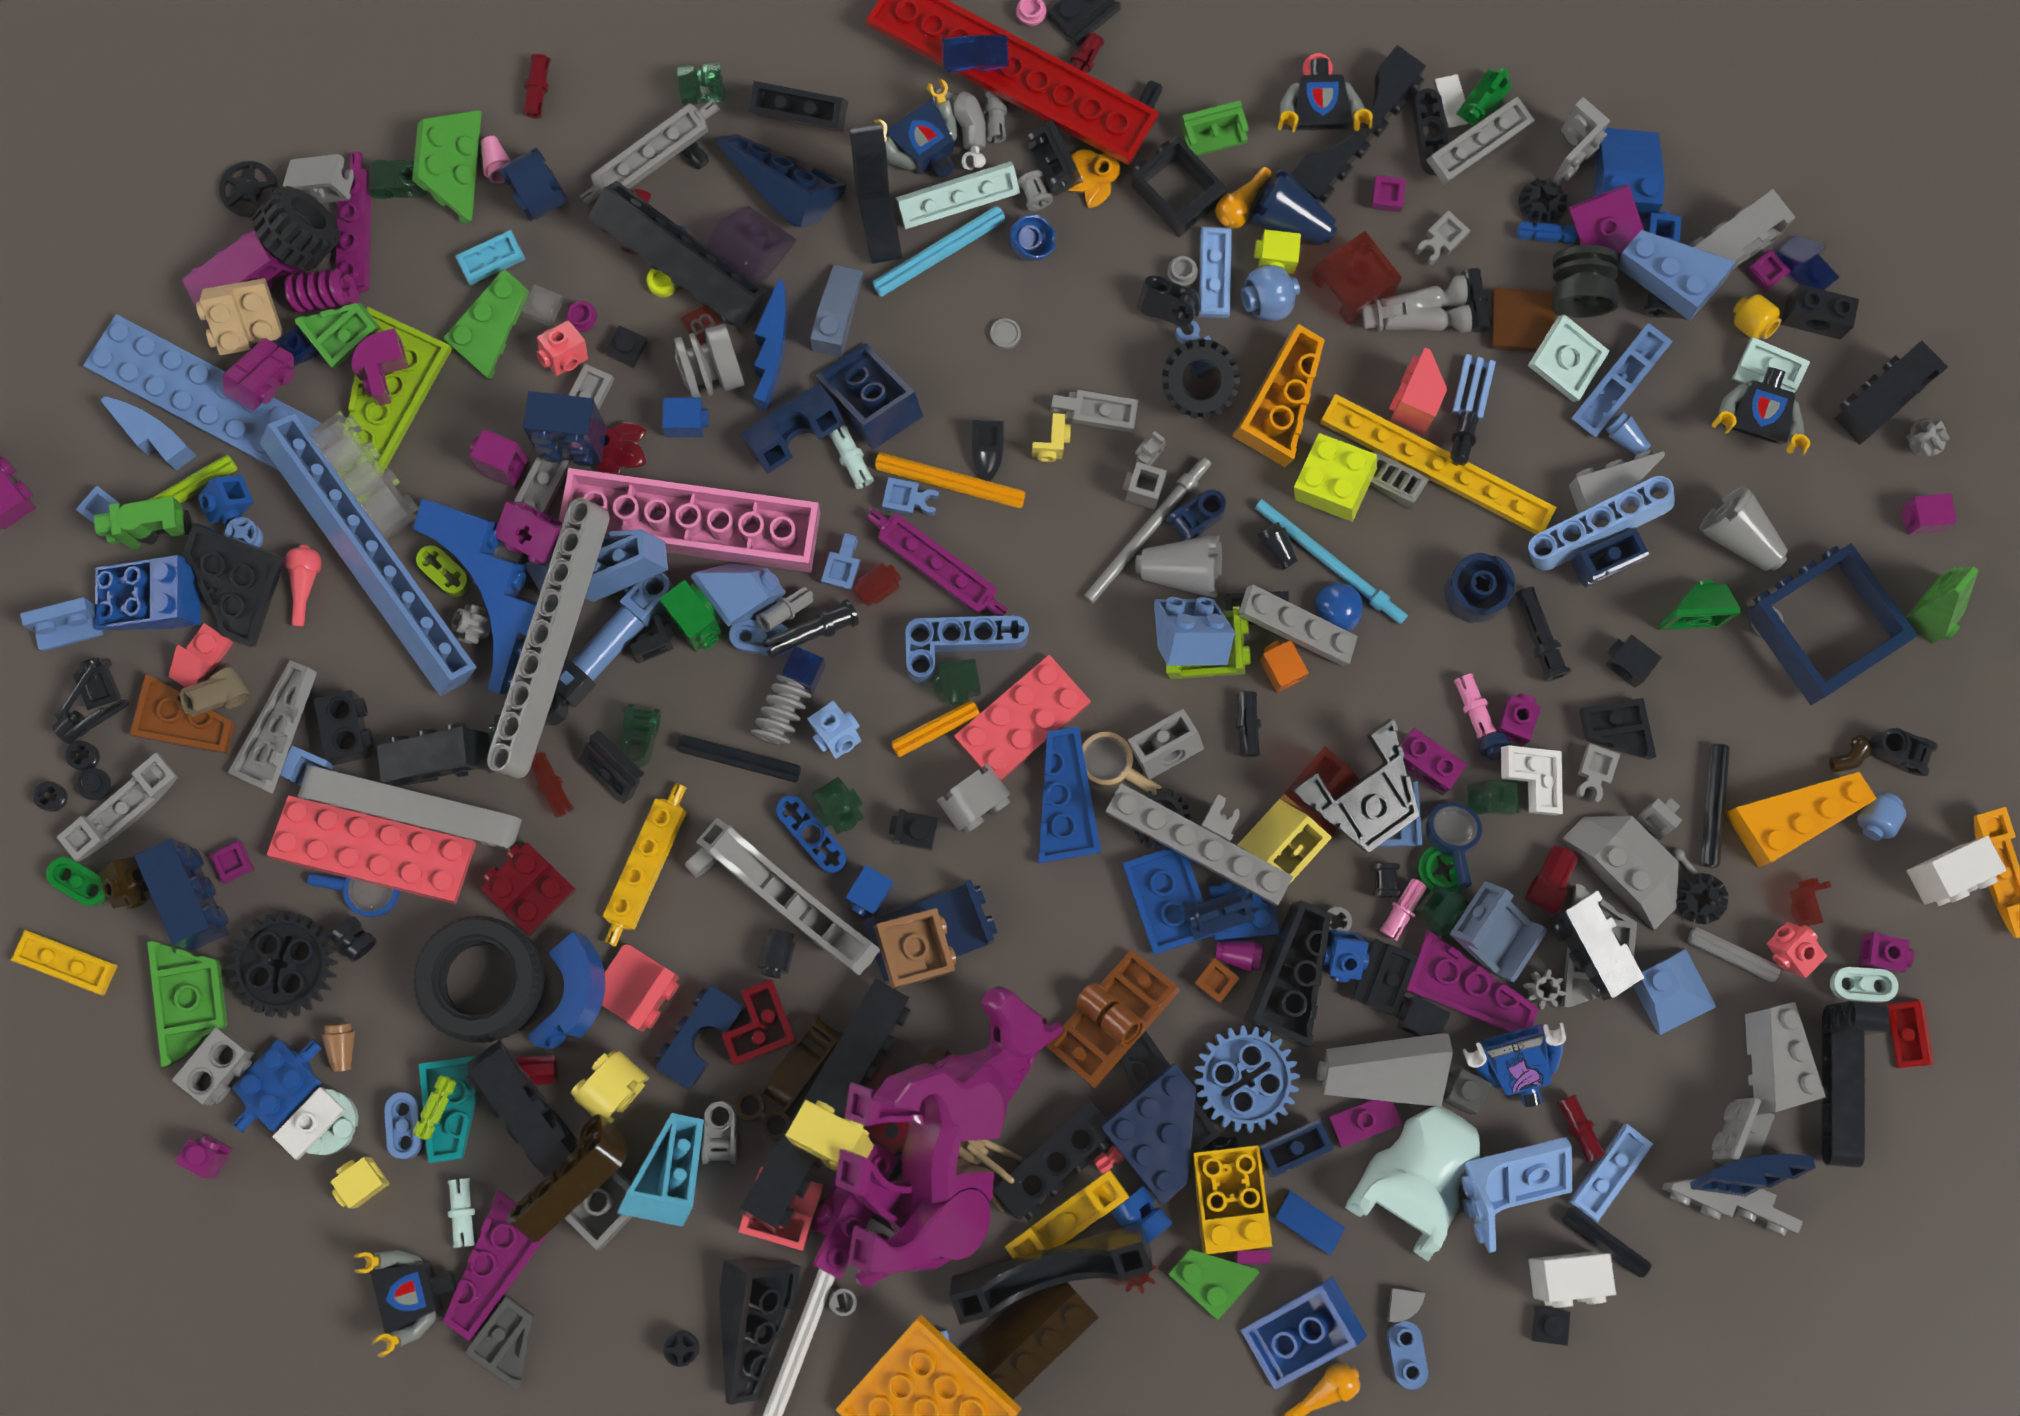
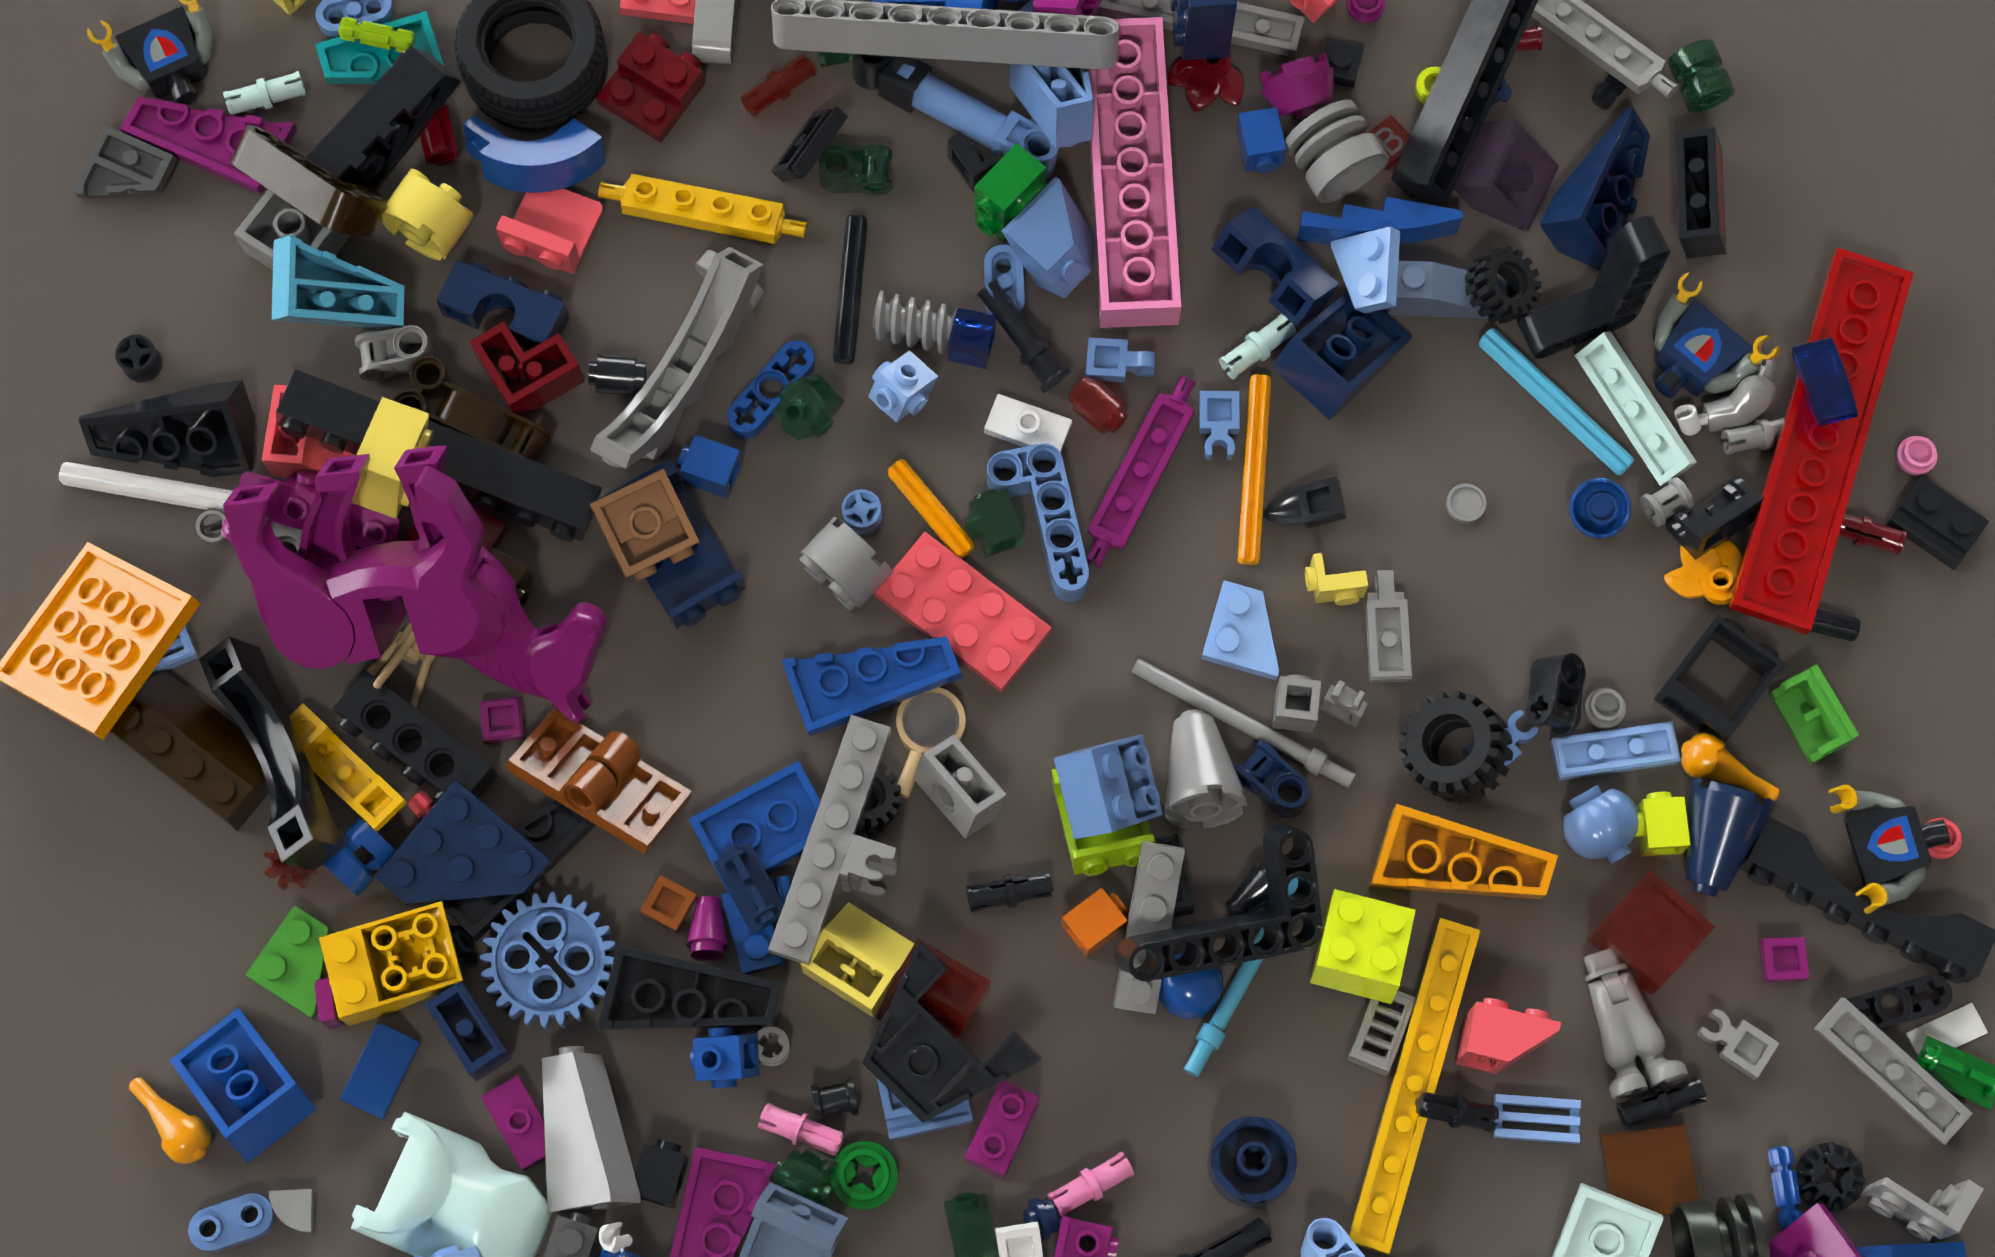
camera: 85 degrees right, 5 degrees down
(646, 378) = (1299, 86): none -> magenta cone
(784, 609) = (1044, 302): light grey axle -> none
(810, 358) = (1370, 267): none -> light blue wing
(843, 277) = (1518, 278): none -> black tyre
(881, 642) = (1026, 424): none -> white plate
(913, 830) = (797, 505): black bracket -> none
(929, 775) = (860, 504): none -> medium blue wheel
(1045, 1089) = (502, 720): none -> magenta tile
(1076, 516) = (1241, 632): none -> light blue wing
(1319, 559) = (1240, 929): none -> black beam
(1385, 977) = (707, 1118): black plate -> none
(1455, 831) = (914, 1179): piece -> none

